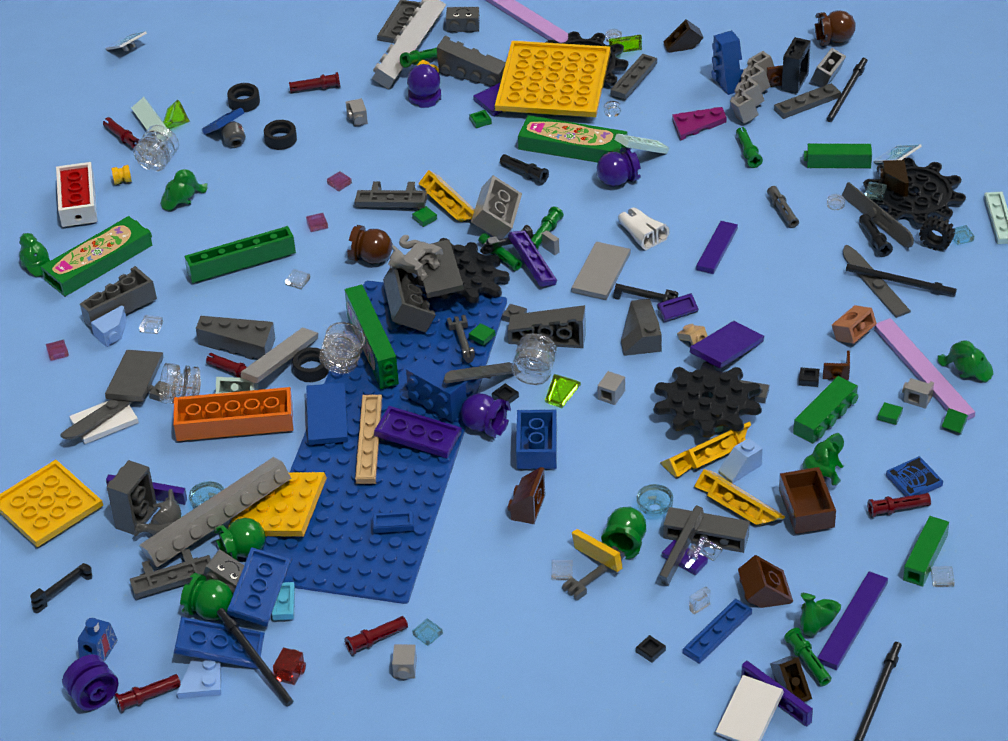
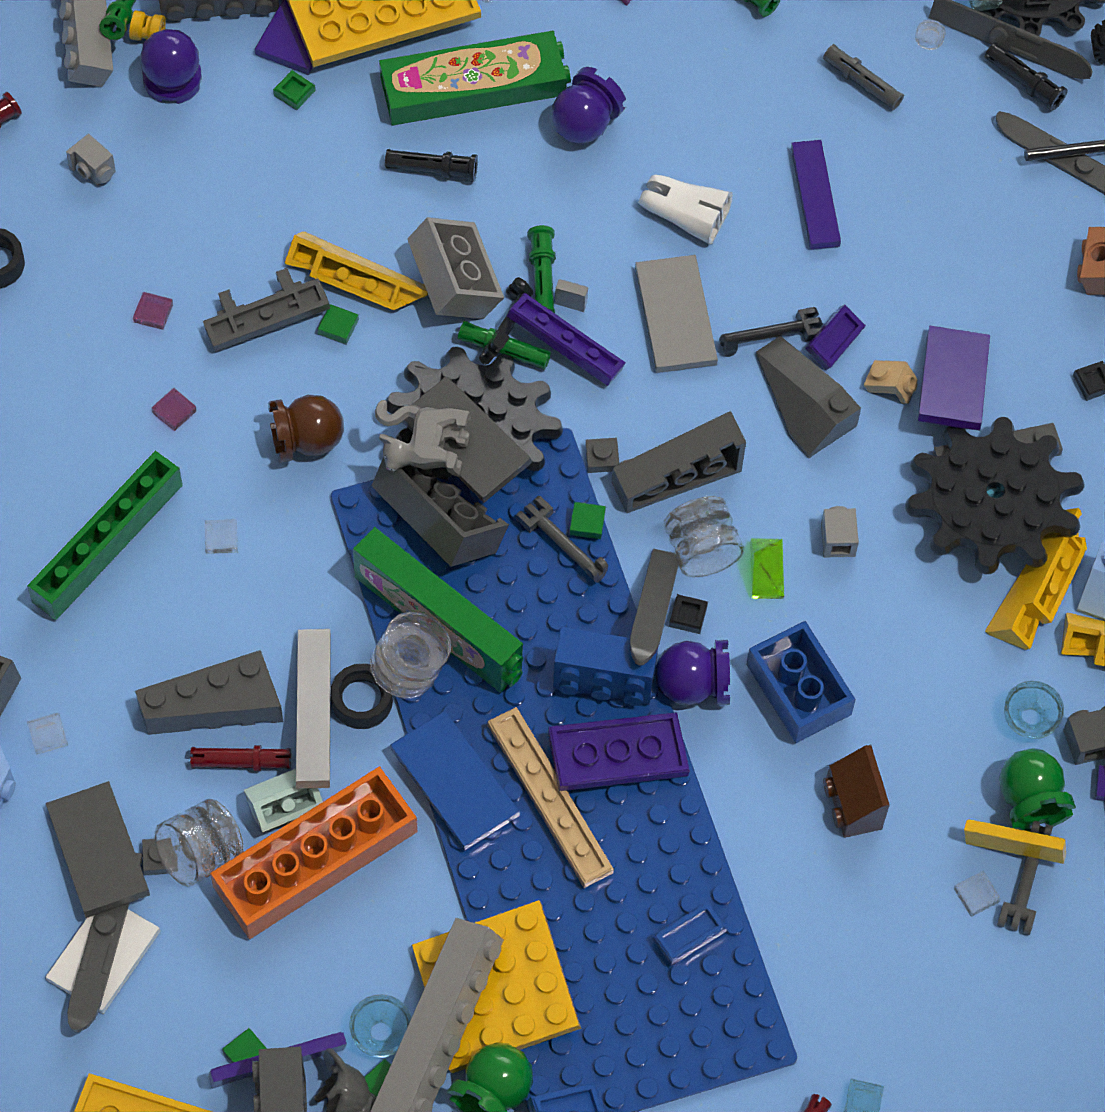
camera: 35 degrees left, 20 degrees up
(642, 143) = (598, 50): light aqua tile -> none

